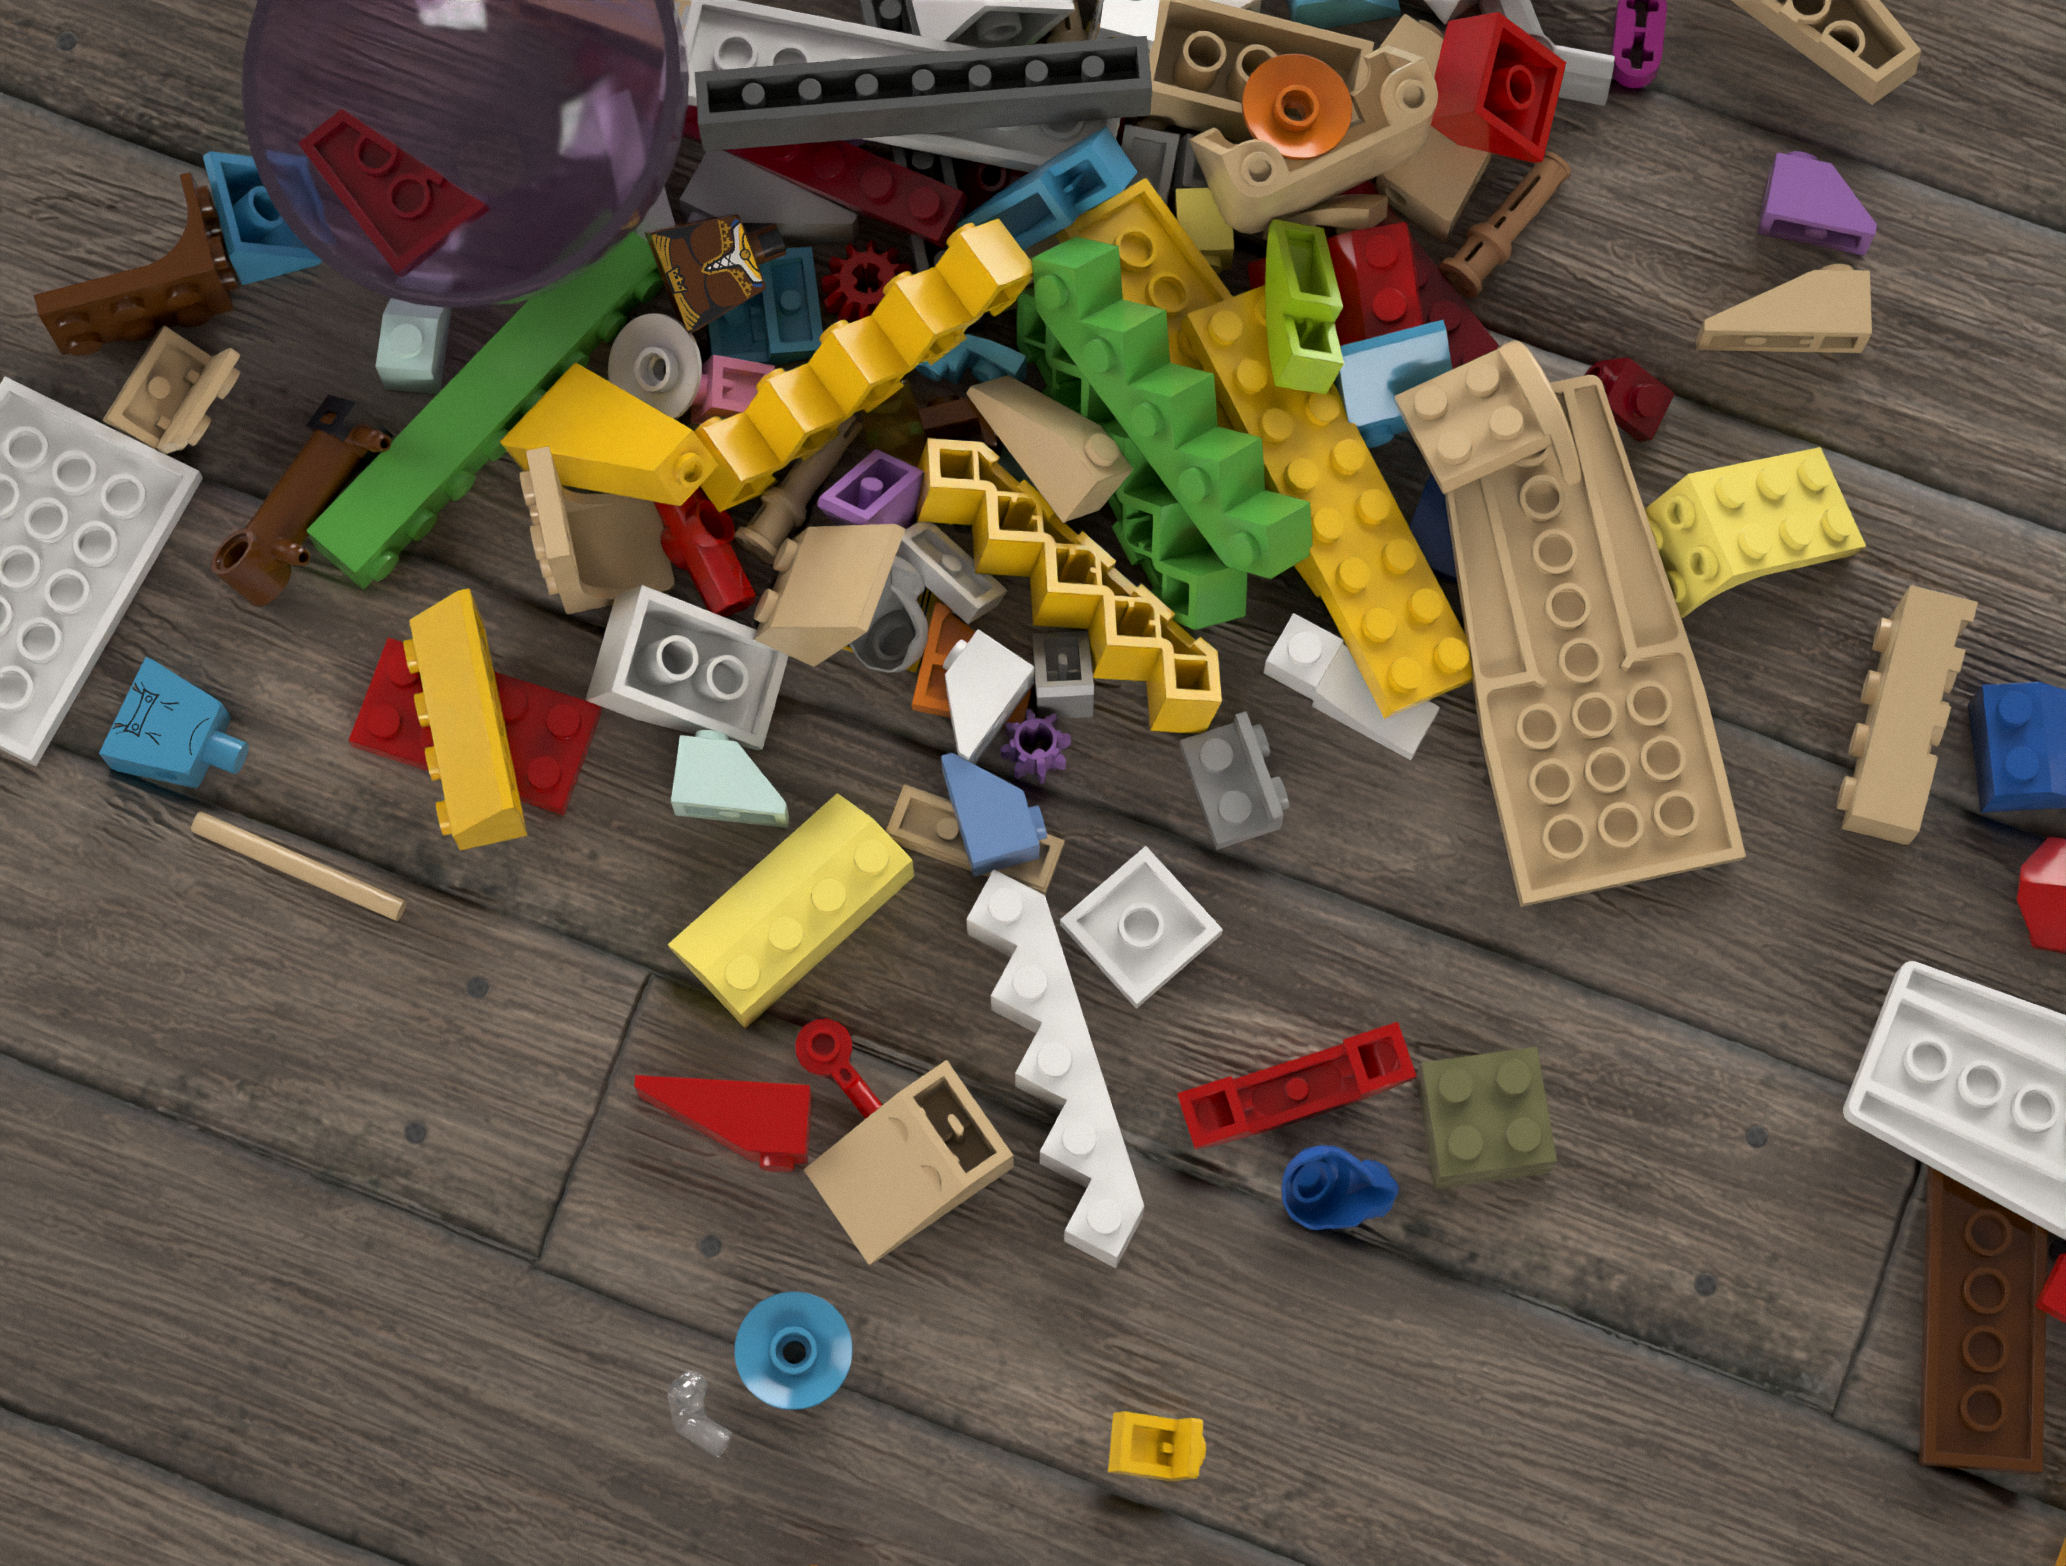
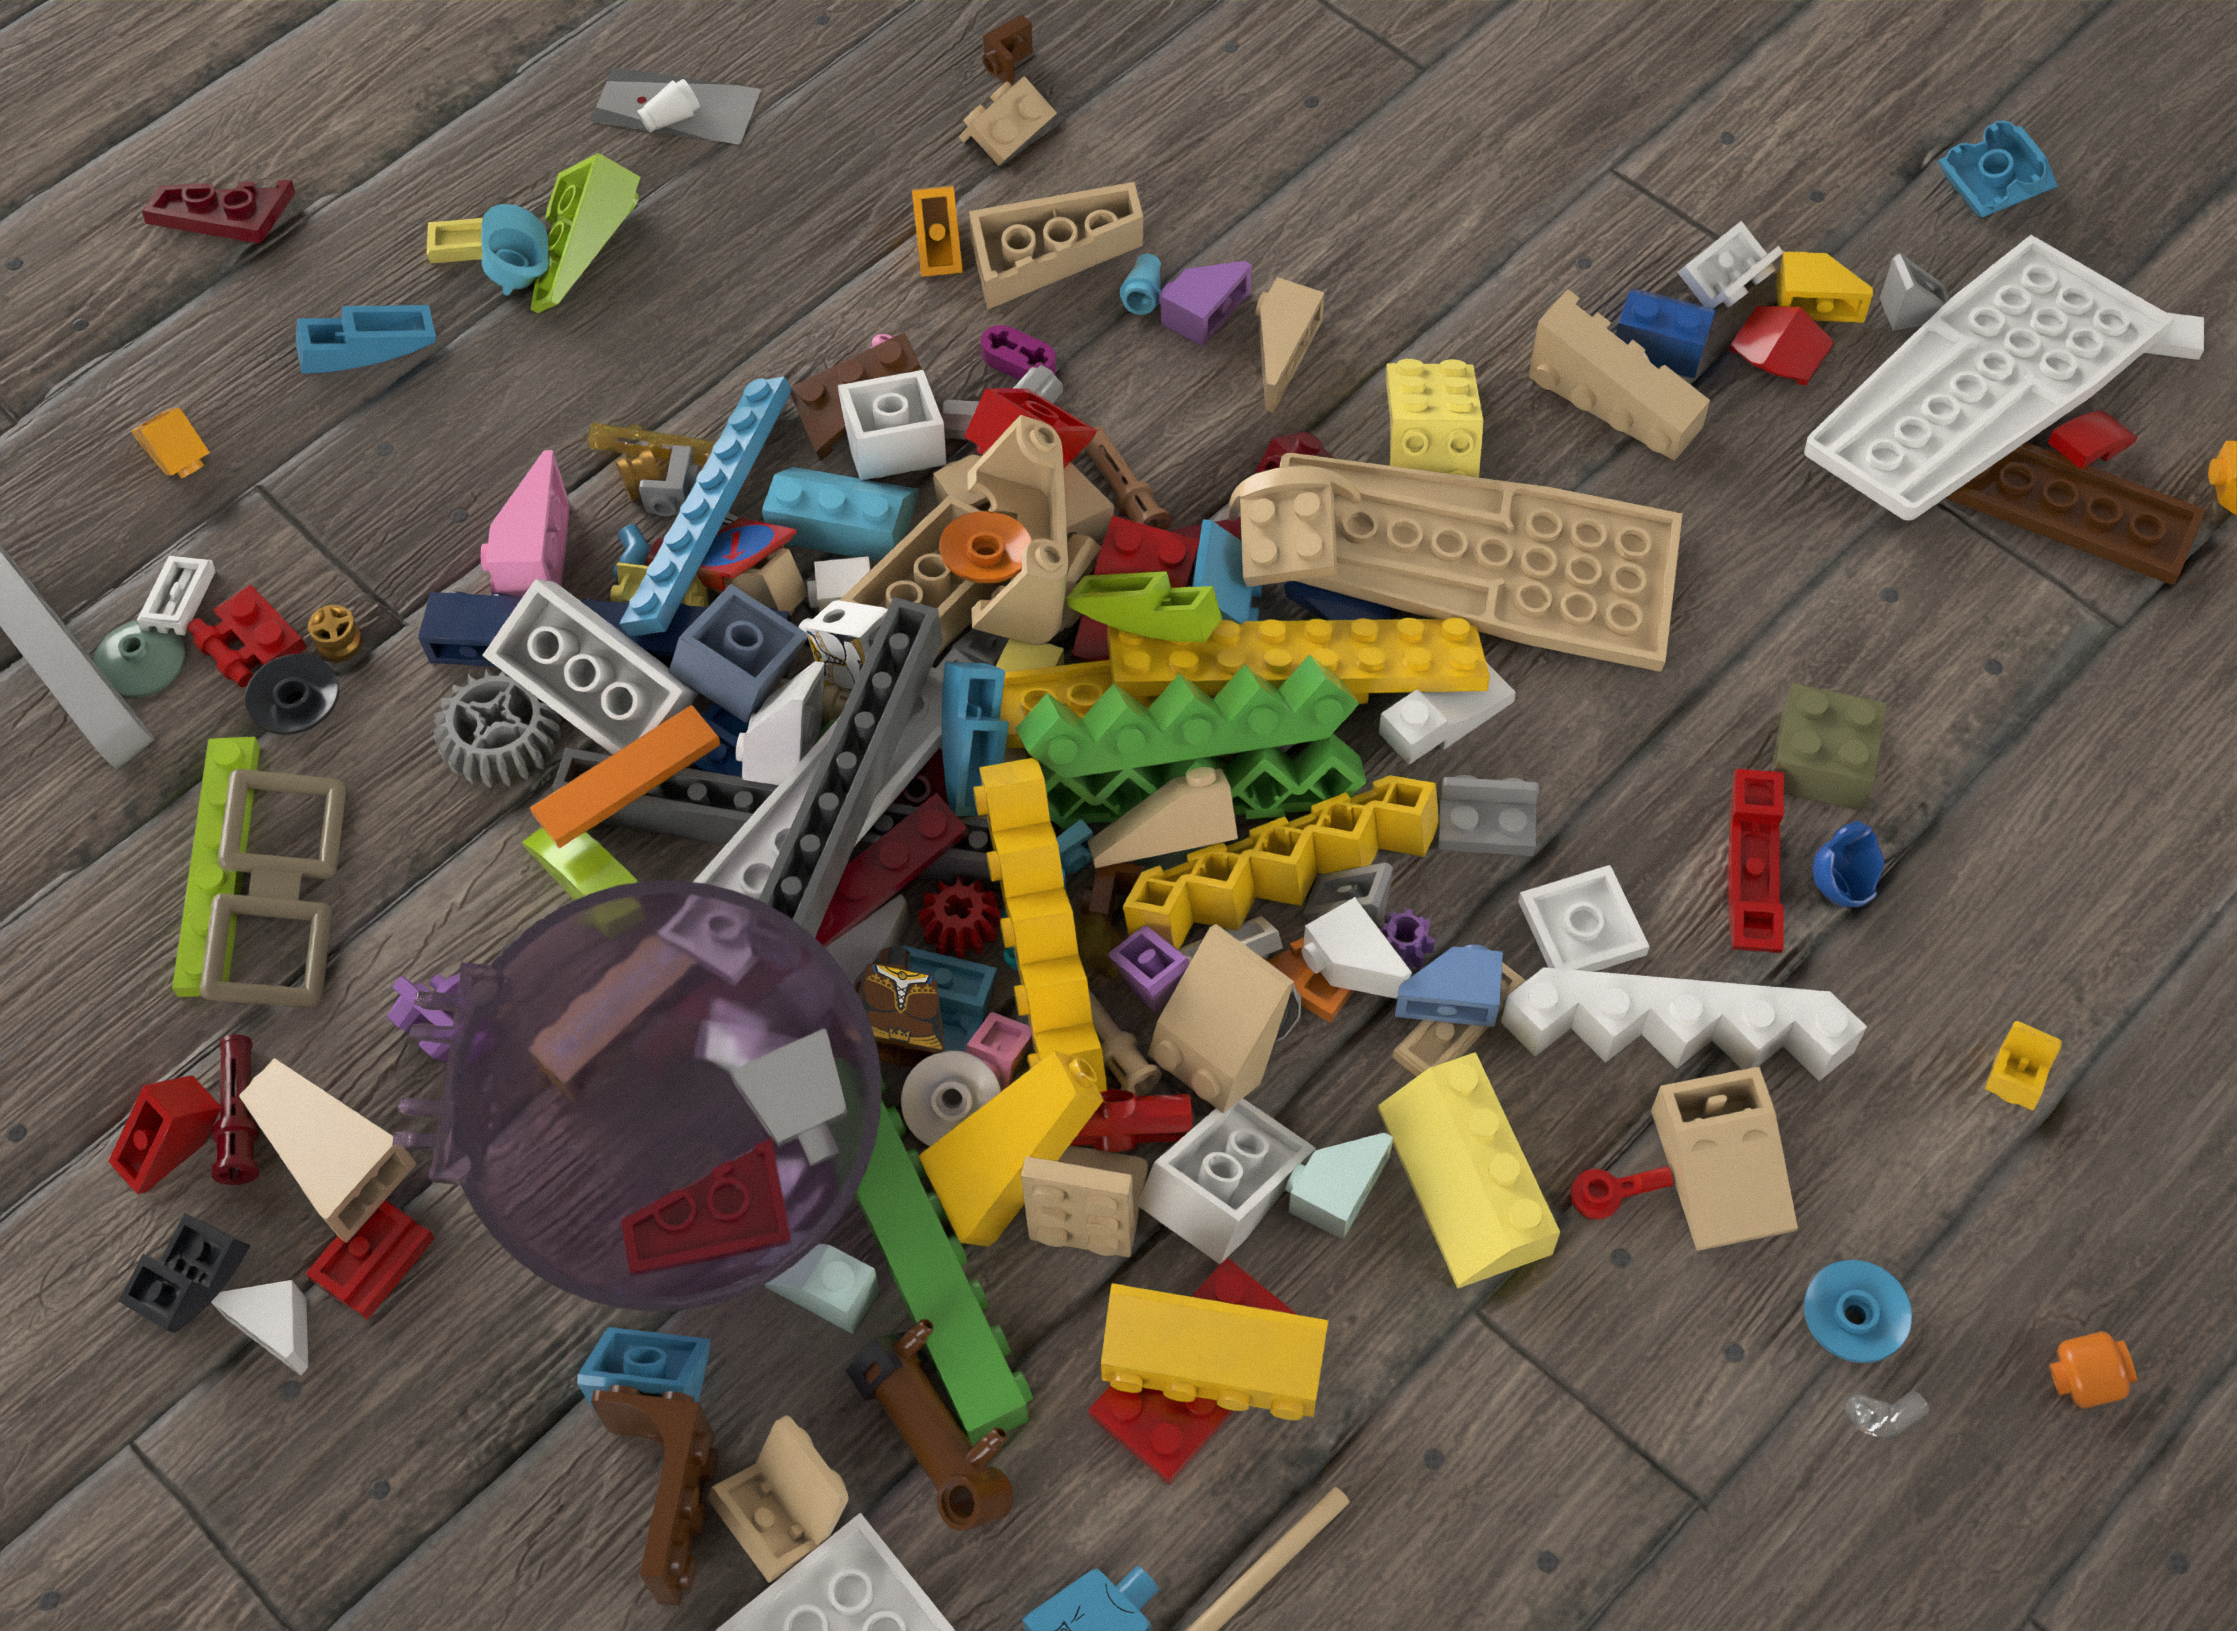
camera: 65 degrees left, 15 degrees down
(533, 206) = (796, 1094): none -> light grey torso
(748, 1117) = (1640, 1277): red slope -> none
(1805, 127) = (1142, 286): none -> medium azure cone

